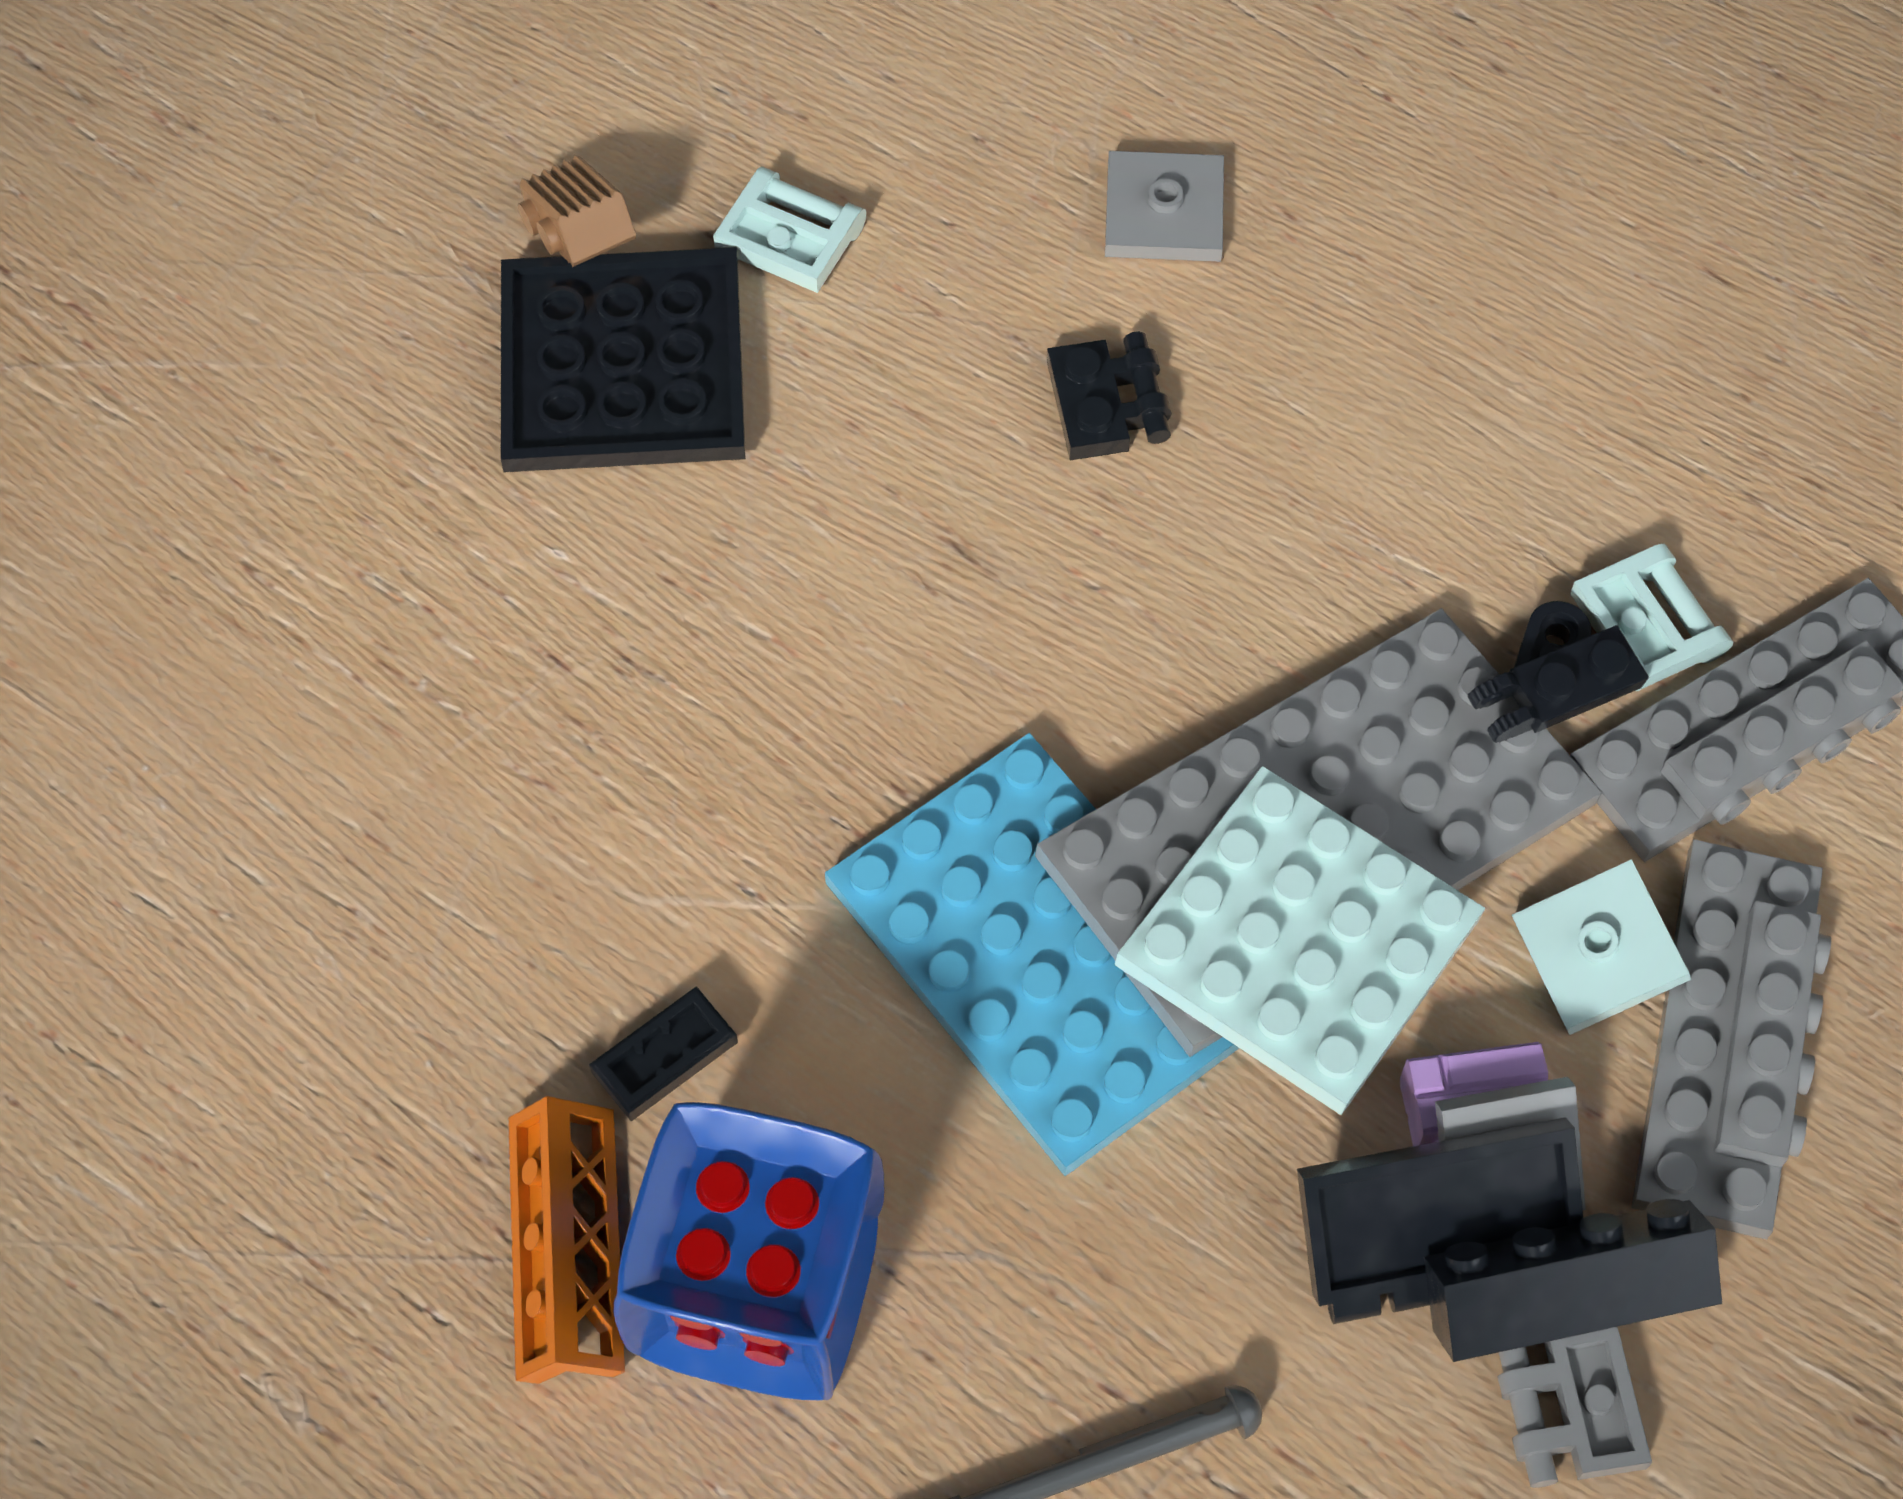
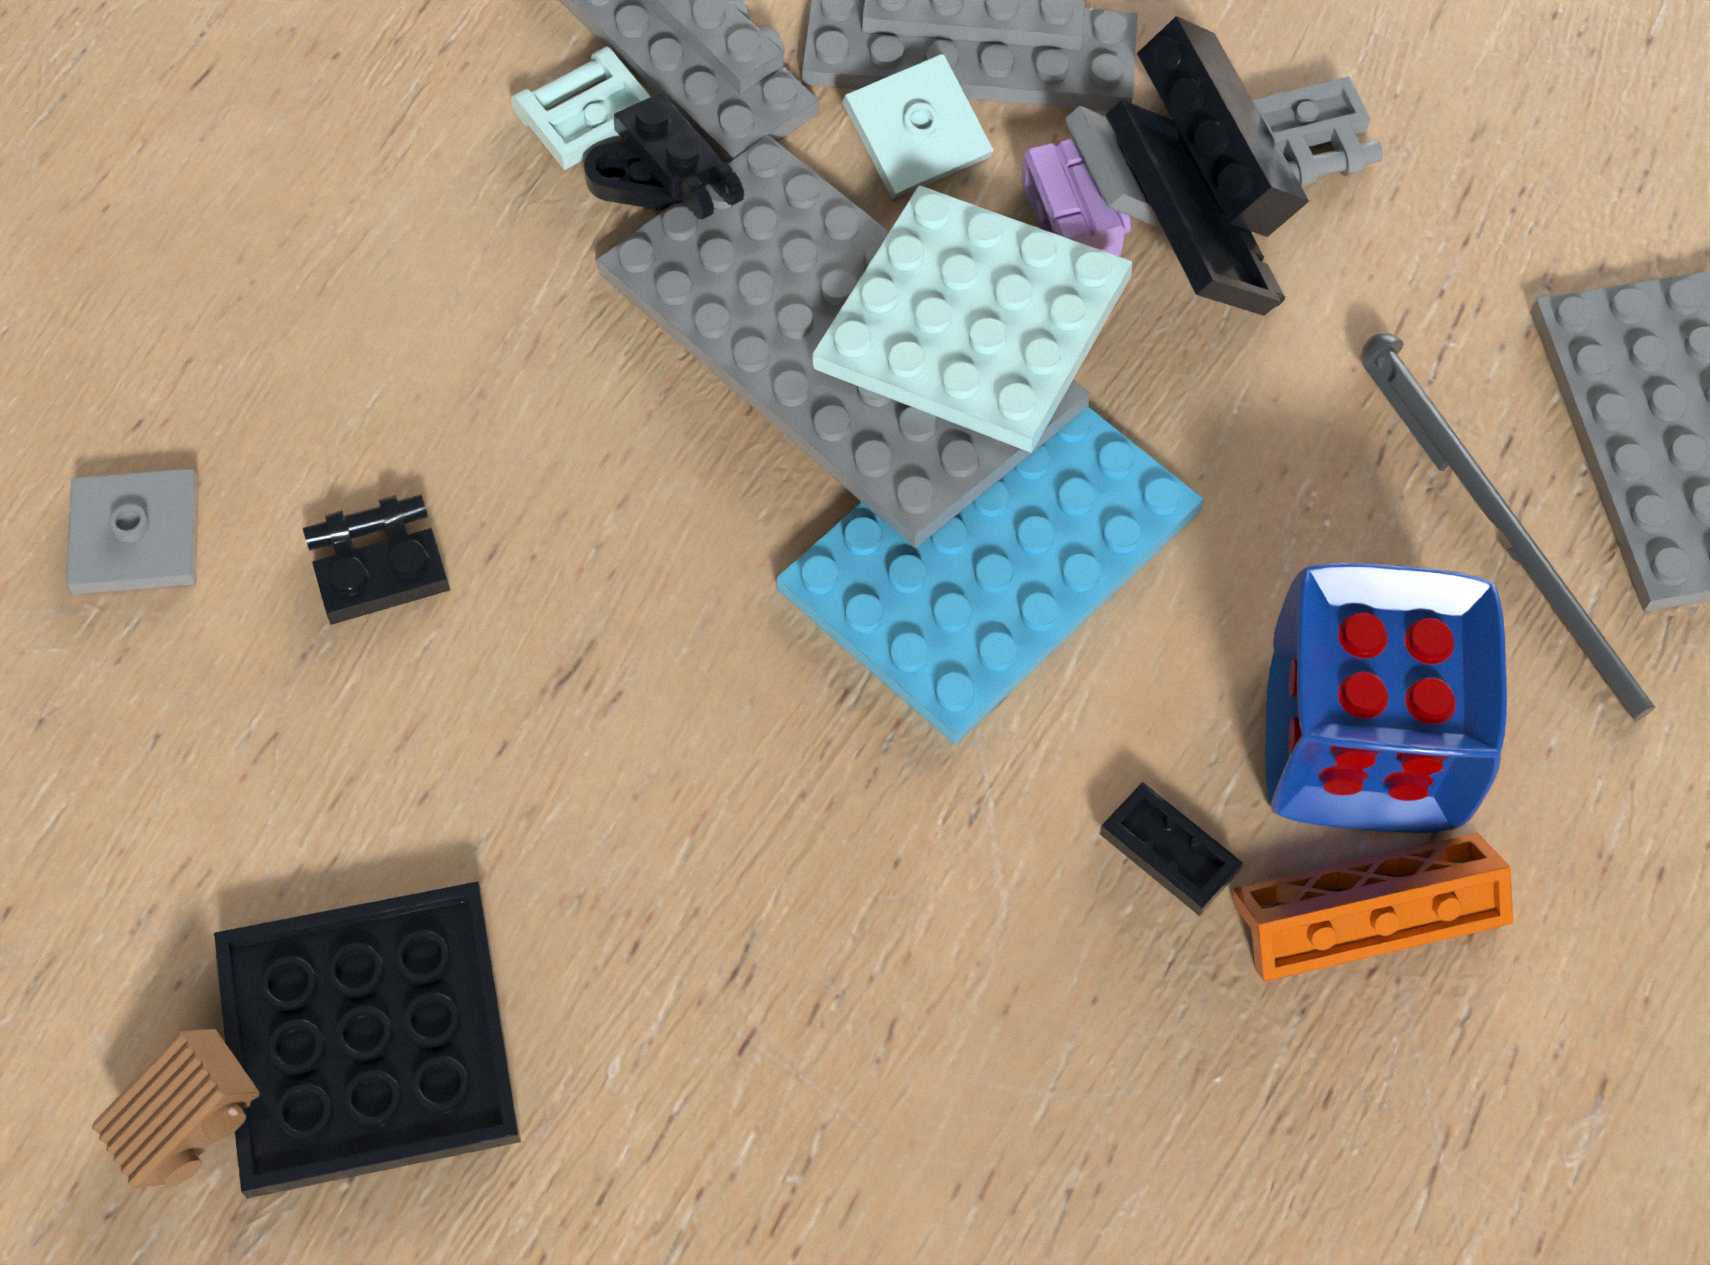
camera: 100 degrees left, 0 degrees up
(783, 241) = (194, 897): light aqua plate -> none

